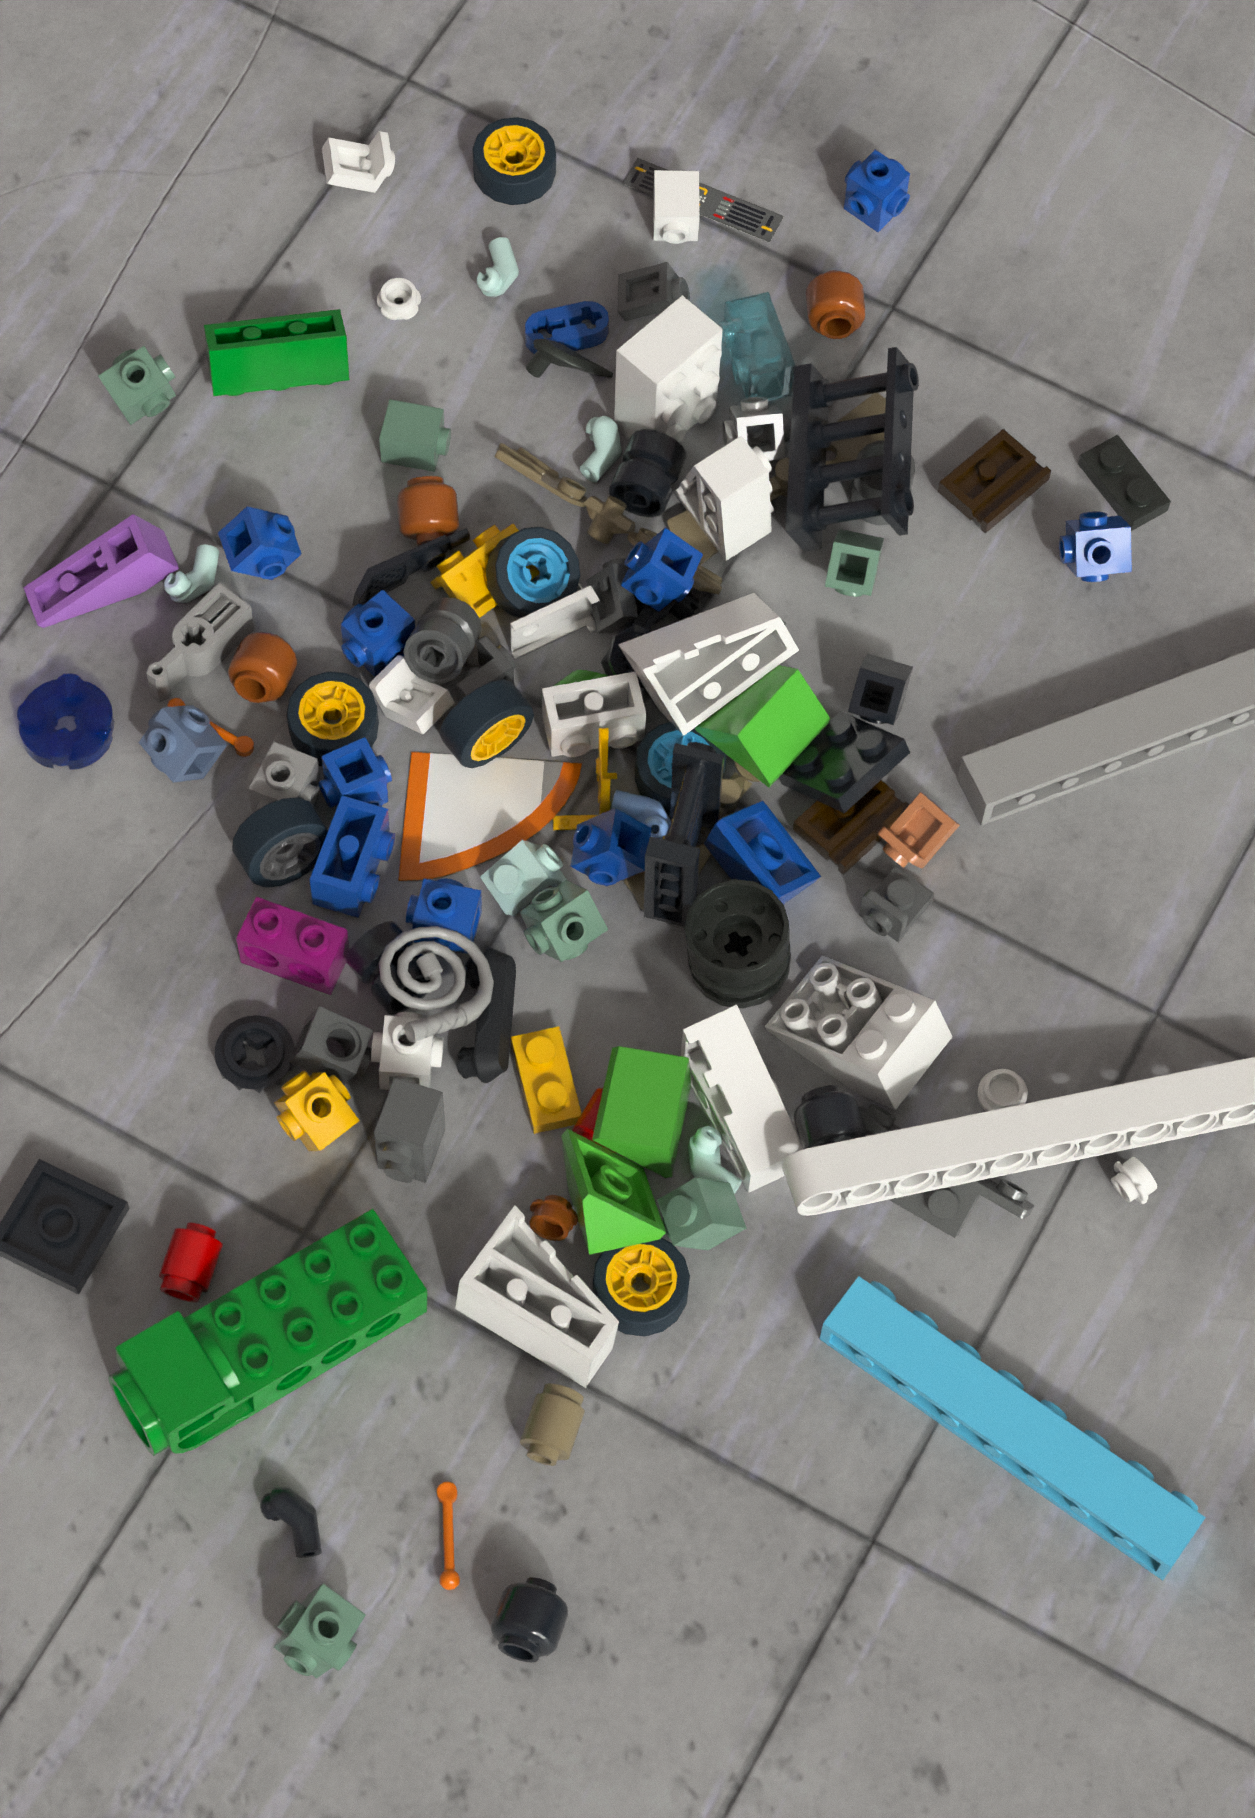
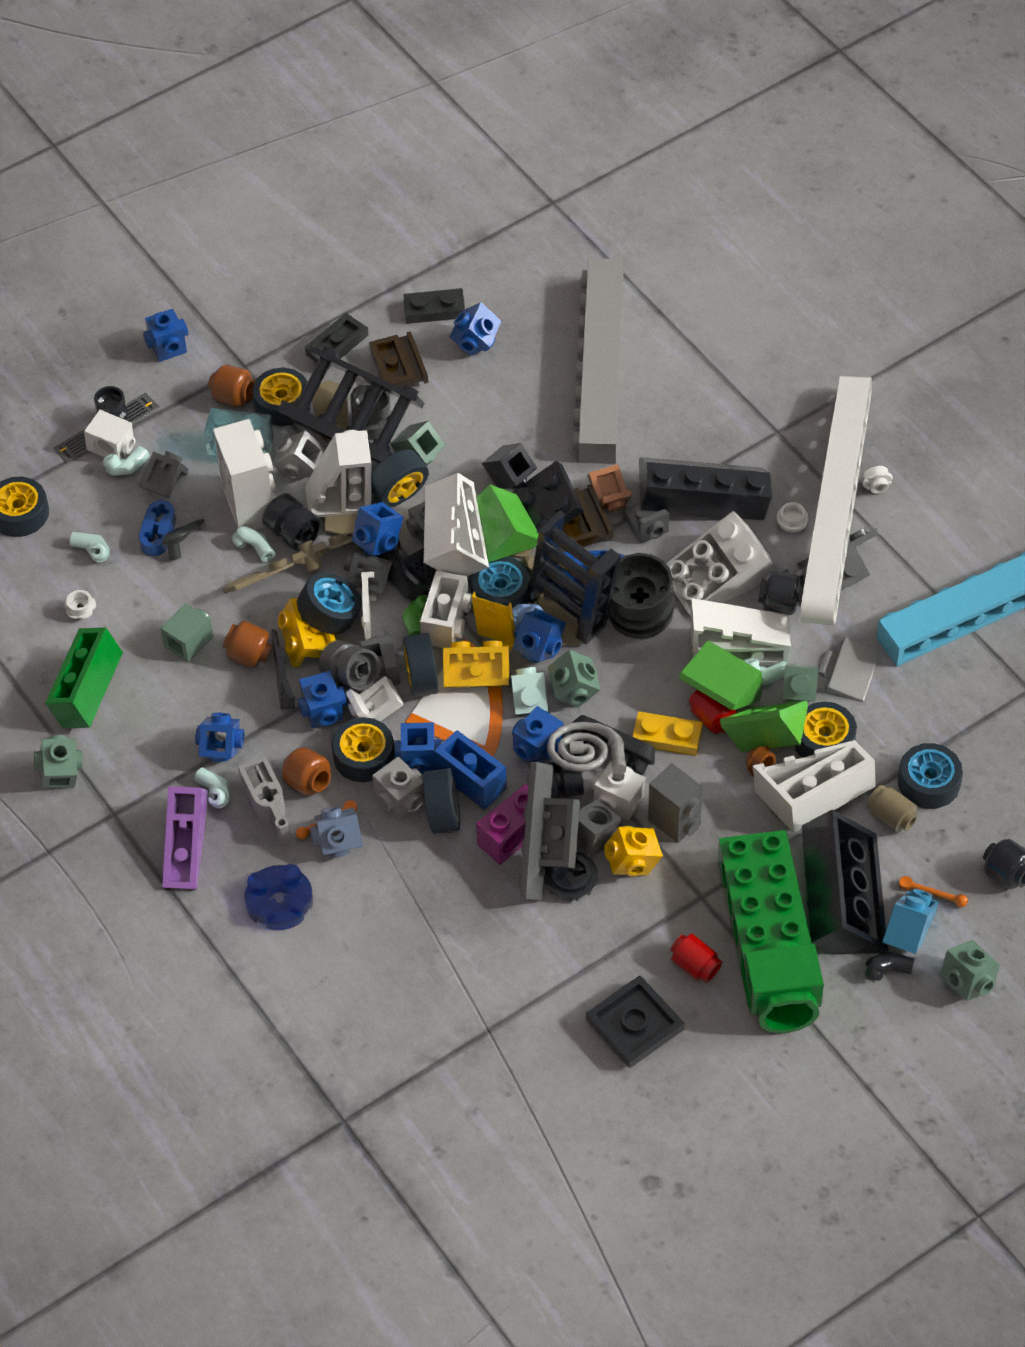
camera: 60 degrees left, 10 degrees down
(277, 985) = (549, 832): none -> dark grey bracket
(374, 1520) = (910, 920): none -> dark azure slope
(392, 1410) = (843, 886): none -> black slope
(530, 791) = (476, 665): none -> yellow bracket
(642, 1428) = (940, 765): none -> wheel
(645, 246) = (125, 466): none -> light aqua arm
(722, 185) = (111, 400): none -> black wheel
(780, 563) = (398, 477): none -> black wheel
(780, 1279) = (851, 670): none -> light grey piece
(849, 350) = (273, 388): none -> wheel
(983, 948) = (704, 488): none -> black slope
(987, 392) = (340, 336): none -> pearl dark grey plate

